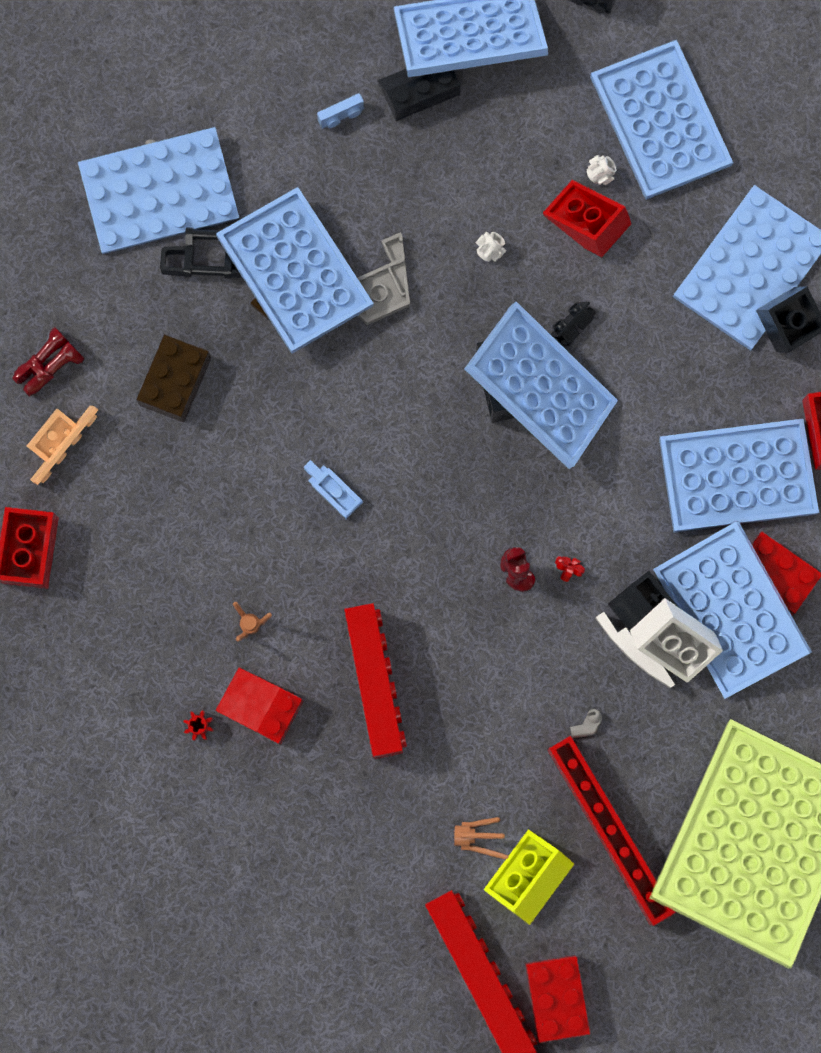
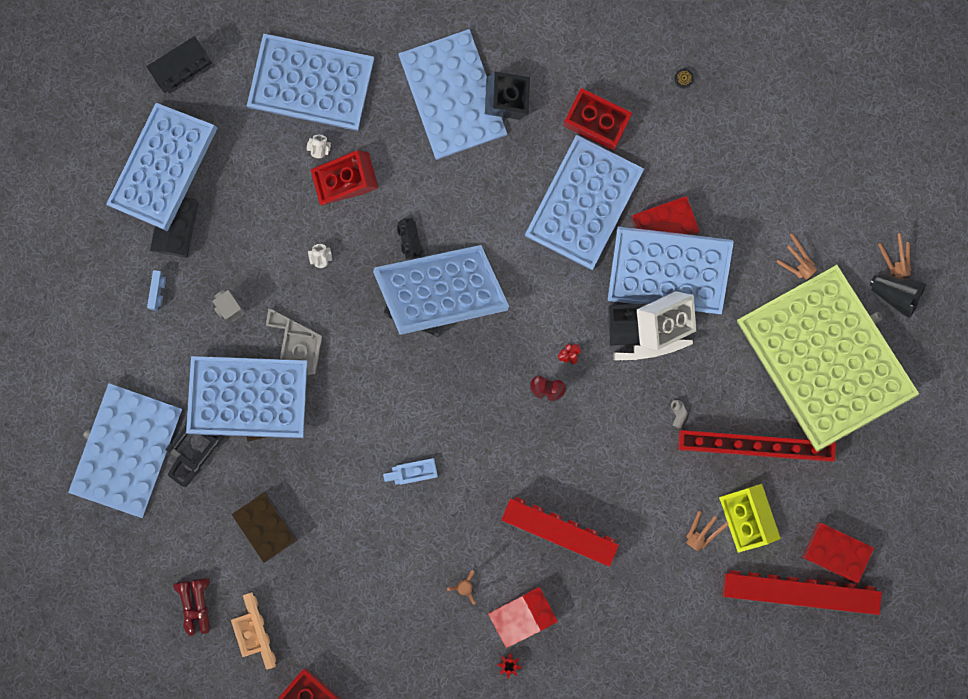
camera: 55 degrees left, 5 degrees up
(374, 189) = (227, 306): none -> light grey brick

